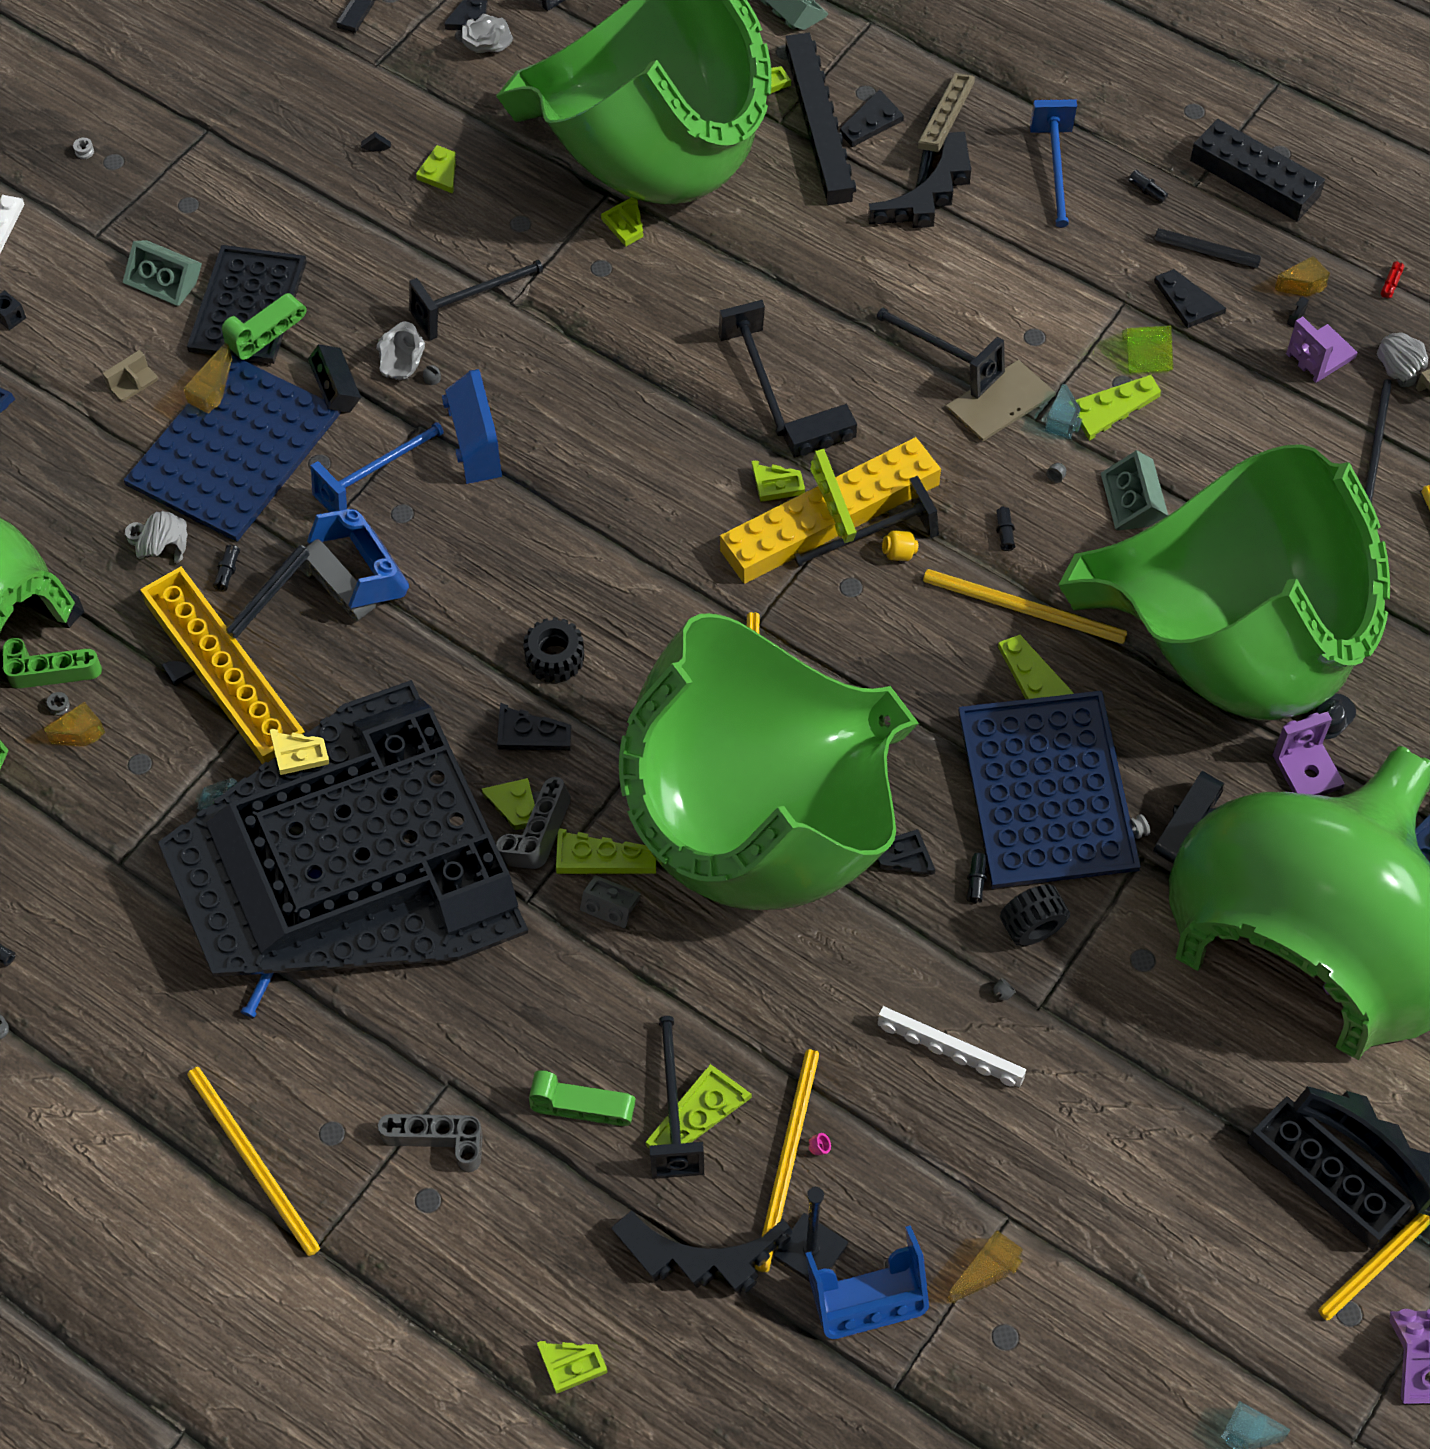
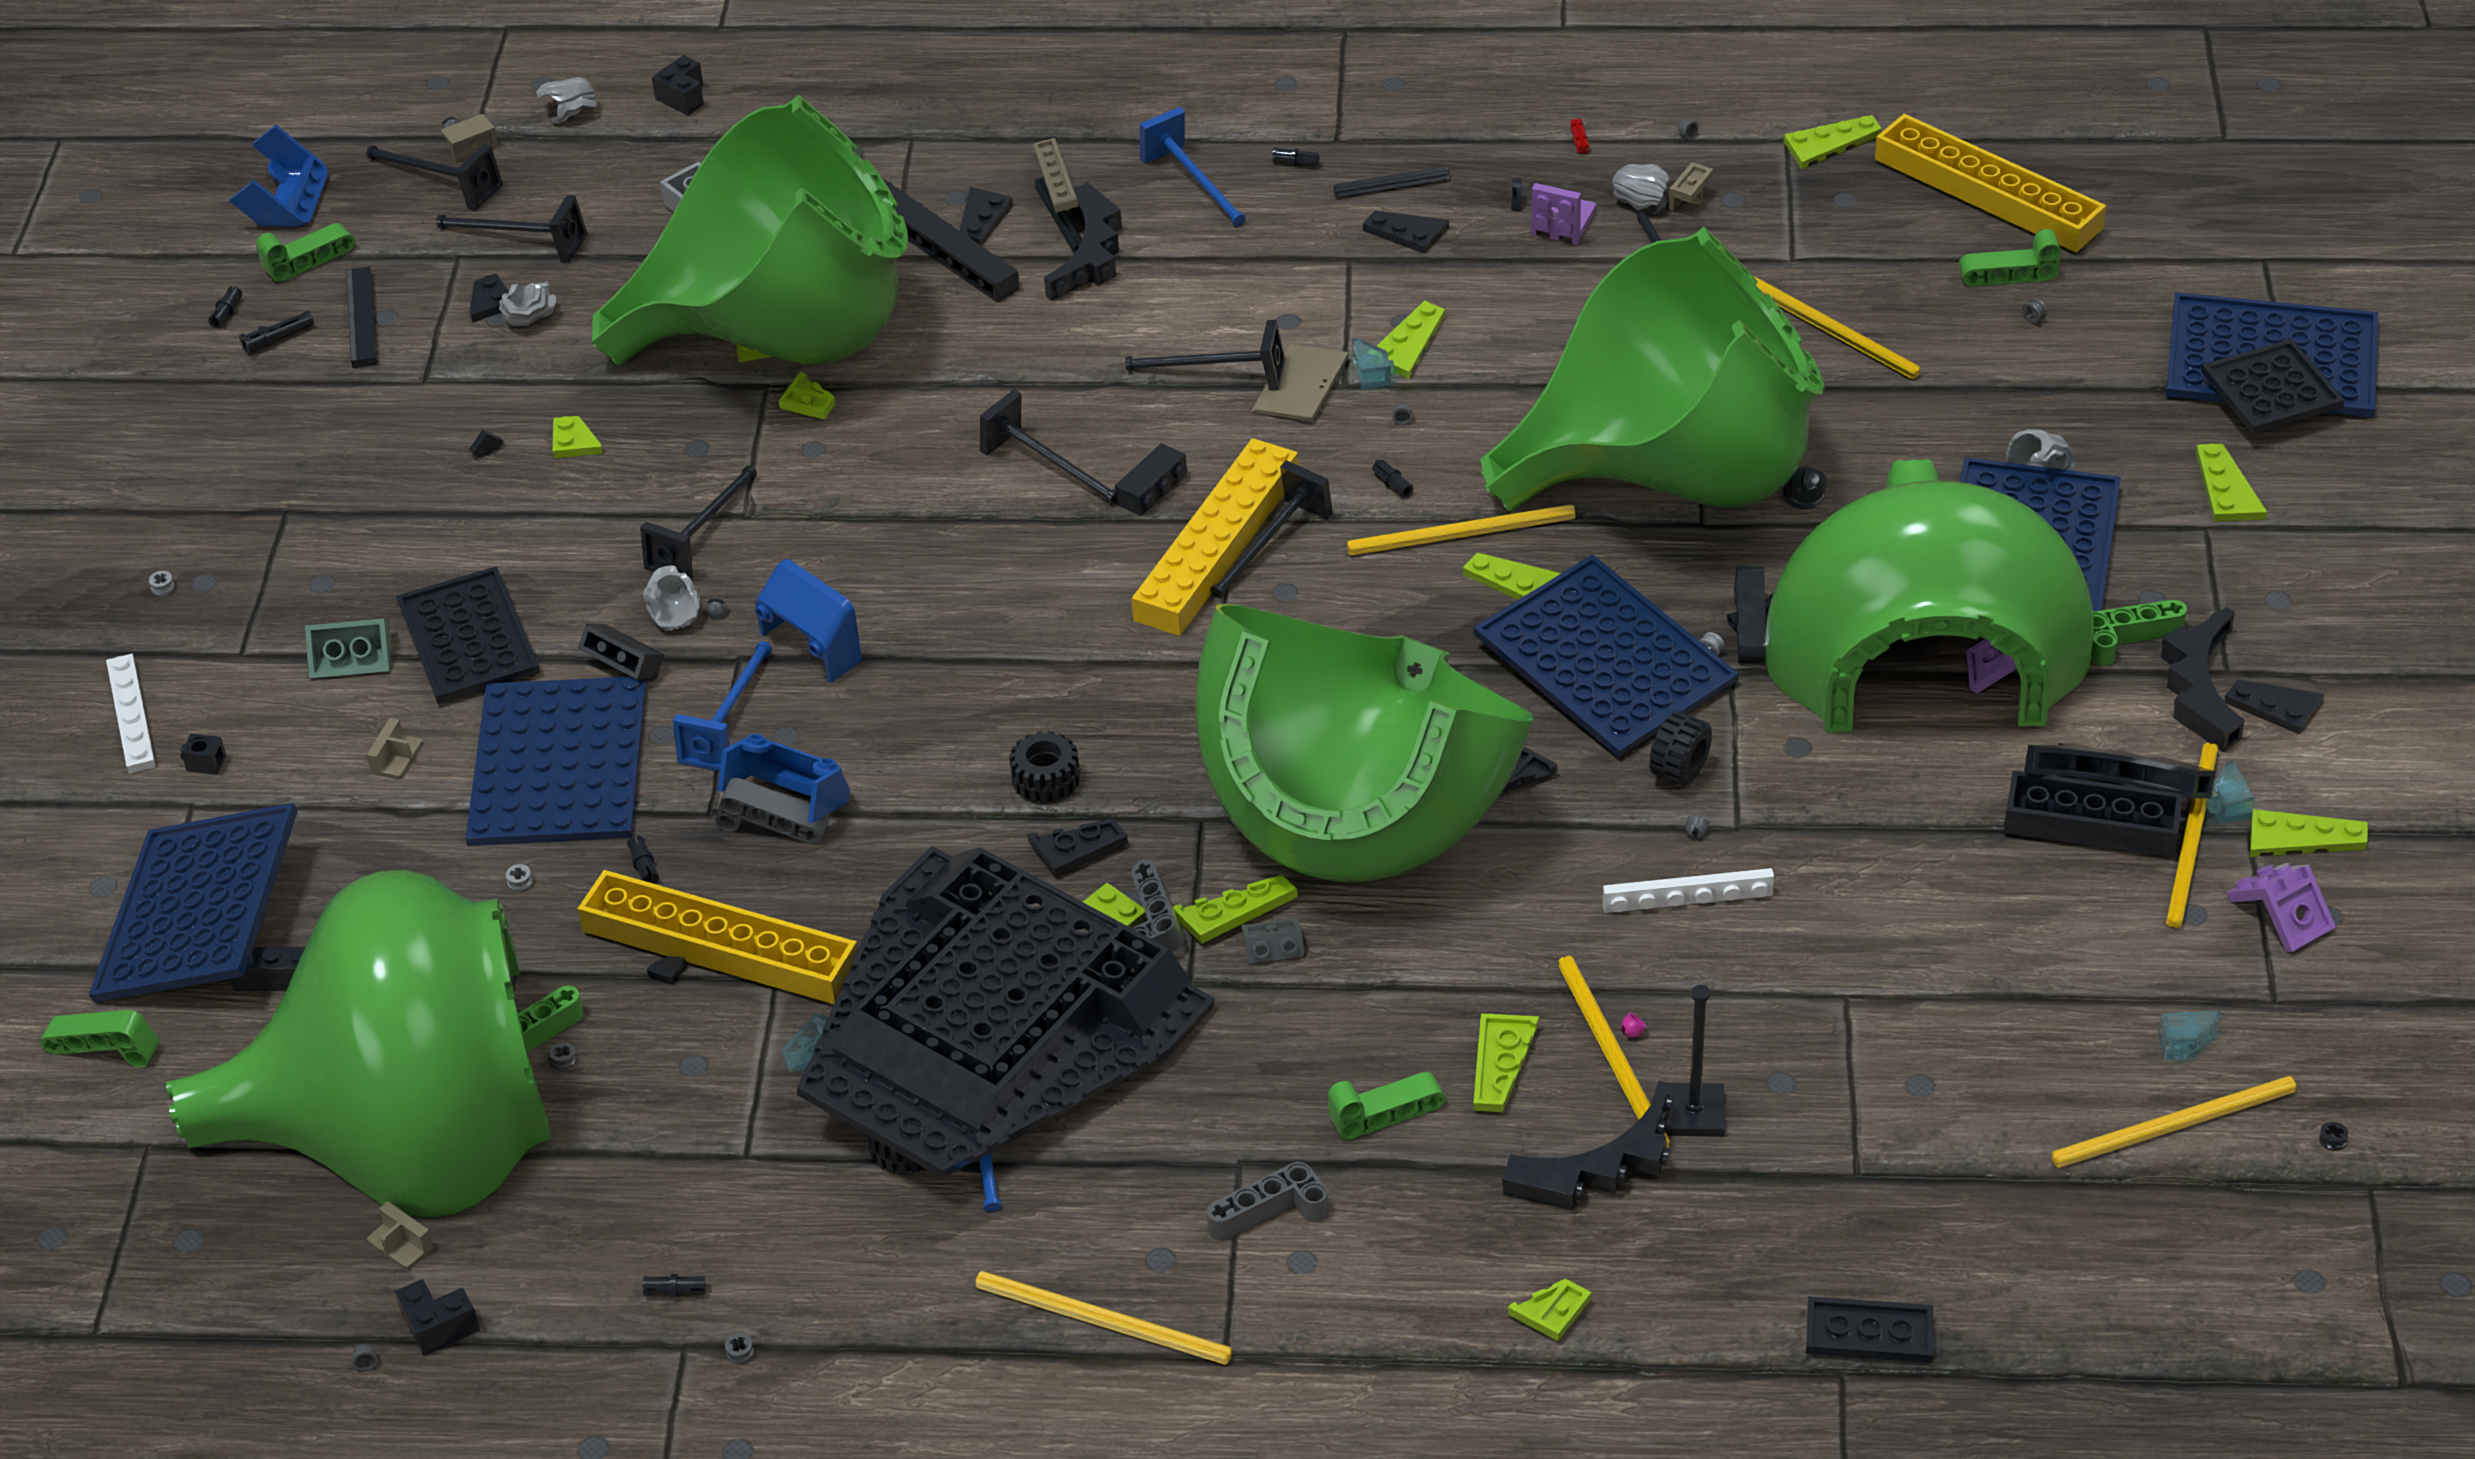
camera: 30 degrees left, 15 degrees down
(76, 727) = (603, 1062): clear yellow slope -> none
(159, 531) = (551, 859): light grey hair -> none
(209, 384) = (493, 713): clear yellow slope -> none
(262, 328) = (502, 651): bright green beam -> none
(267, 591) = (720, 843): black axle -> none
(298, 752) = (876, 947): light yellow wing -> none
(675, 1158) = (1512, 1096): black tile -> none
(777, 482) = (1143, 539): lime wing -> none
(832, 495) = (1213, 506): lime wing -> none
(874, 1297) = (1785, 1111): blue windscreen -> none
(899, 545) = (1306, 534): yellow head -> none
(976, 878) = (1599, 754): black axle -> none
(989, 1267) = (1864, 1034): clear yellow slope -> none
(1134, 492) = (1487, 396): sand green slope -> none
(1149, 349) = (1405, 280): clear neon green bracket -> none
(1257, 170) = (1387, 100): black brick -> none
(1302, 749) = (1799, 508): medium lavender bracket -> none
(1303, 278) = (1501, 166): clear yellow slope -> none

